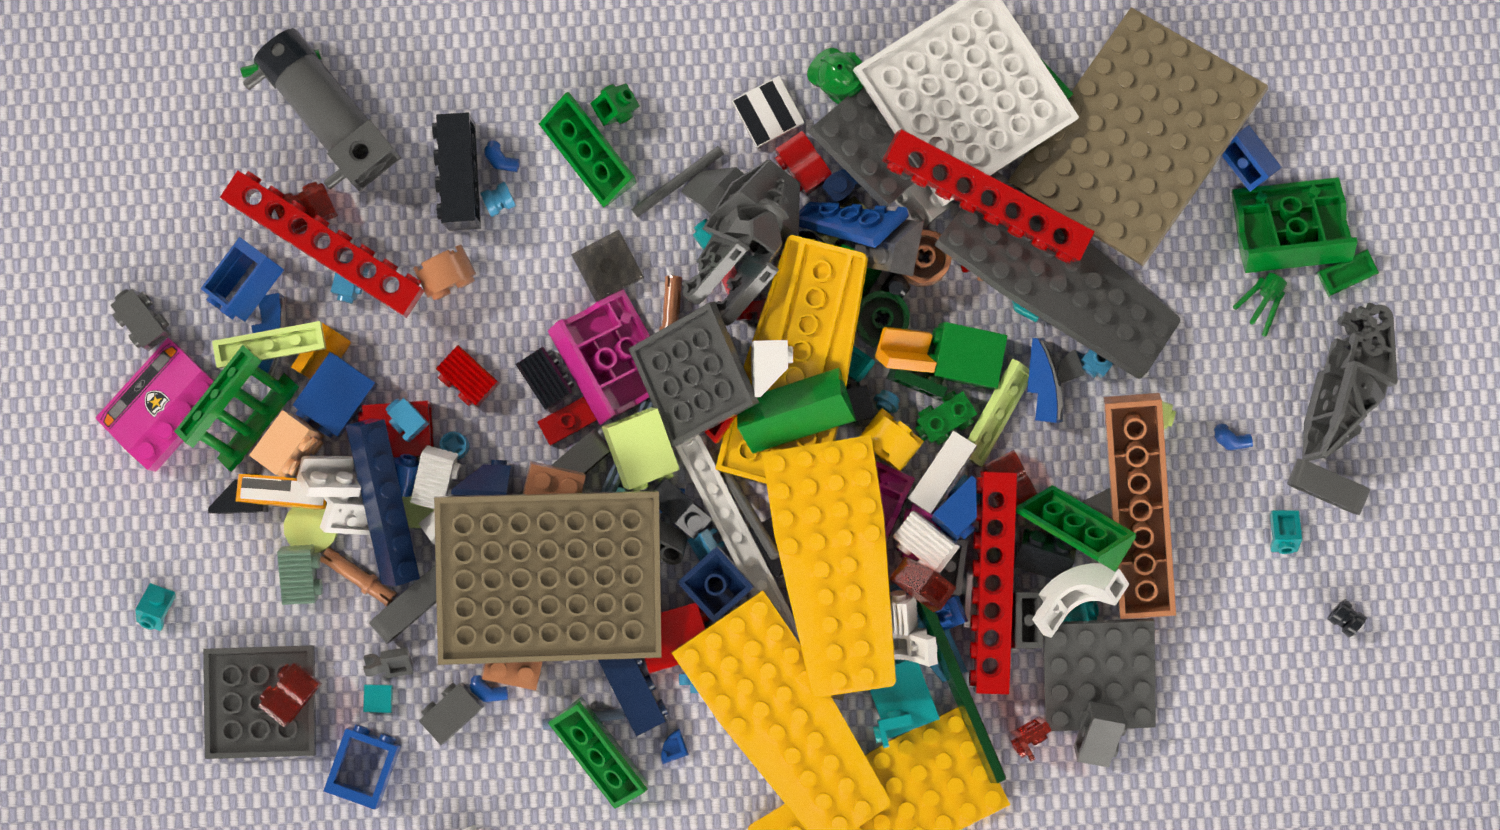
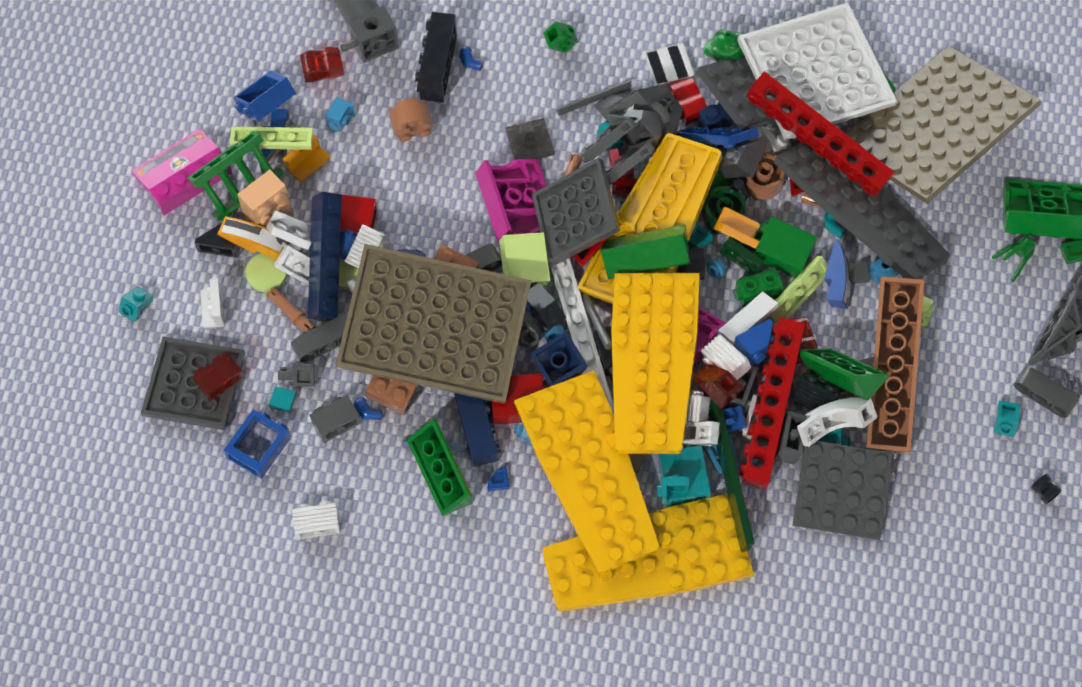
camera: 10 degrees right, 20 degrees down
(135, 312) = (186, 115): dark grey brick -> none
(238, 196) = (291, 53): red brick -> none
(255, 591) = (212, 305): none -> white bracket
(299, 574) = (248, 298): sand green brick -> none
(334, 395) = (307, 181): blue brick -> none
(406, 418) = (357, 204): dark azure brick -> none
(455, 441) = (389, 230): dark azure wheel -> none
(467, 376) = (408, 192): red brick -> none
(498, 199) = (461, 83): dark azure wheel -> none
(545, 378) = (465, 204): black brick -> none
(567, 421) = (474, 237): red plate -> none
(587, 150) = (534, 63): green slope -> none
(768, 363) = (634, 208): white slope -> none
(892, 440) = (716, 291): yellow brick -> none
(1031, 732) = (778, 520): clear red bracket -> none
(1100, 734) = (834, 530): brick -> none
(1229, 440) = (974, 346): blue arm -> none
(1250, 158) = (1019, 155): blue brick -> none

